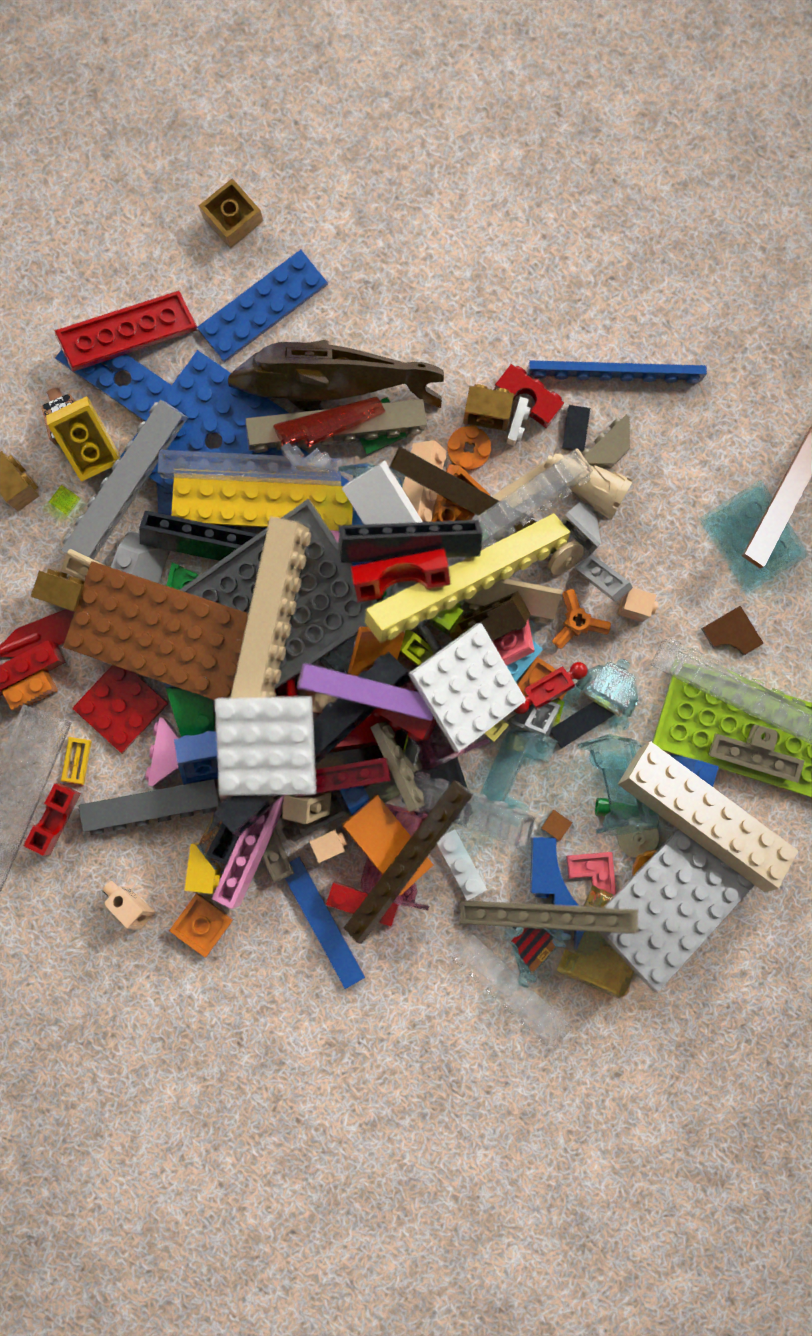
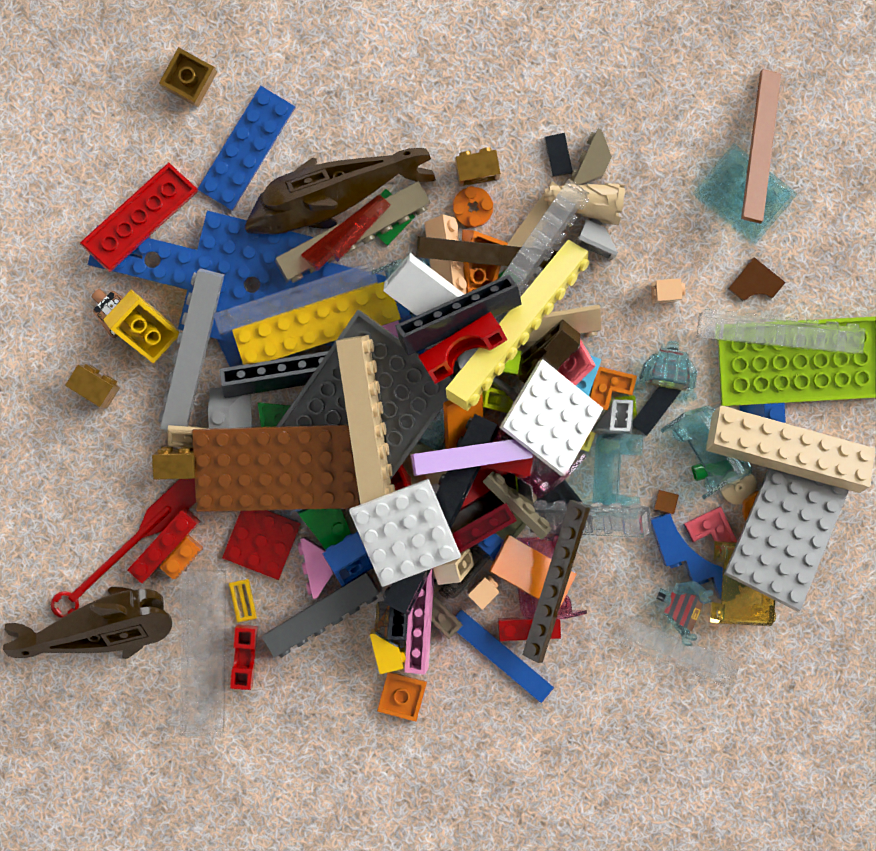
camera: 20 degrees left, 5 degrees up
(64, 500) = (143, 383): clear neon green tile -> none
(127, 906) = (342, 706): light nougat torso -> none
(314, 462) = (351, 274): clear slope -> none
(461, 865) = (600, 565): white plate -> none
(521, 414) = (507, 160): white plate -> none
(546, 403) = (525, 143): red arch -> none
(550, 916) = (688, 581): dark tan tile -> none
(552, 686) = (620, 387): red plate -> none
(565, 557) = (591, 272): tan piece -> none
(570, 628) = (631, 322): orange bush -> none
(603, 578) = (630, 278): light grey plate -> none
(626, 371) = (584, 89): blue plate -> none
(757, 753) = (813, 379): dark tan plate -> none

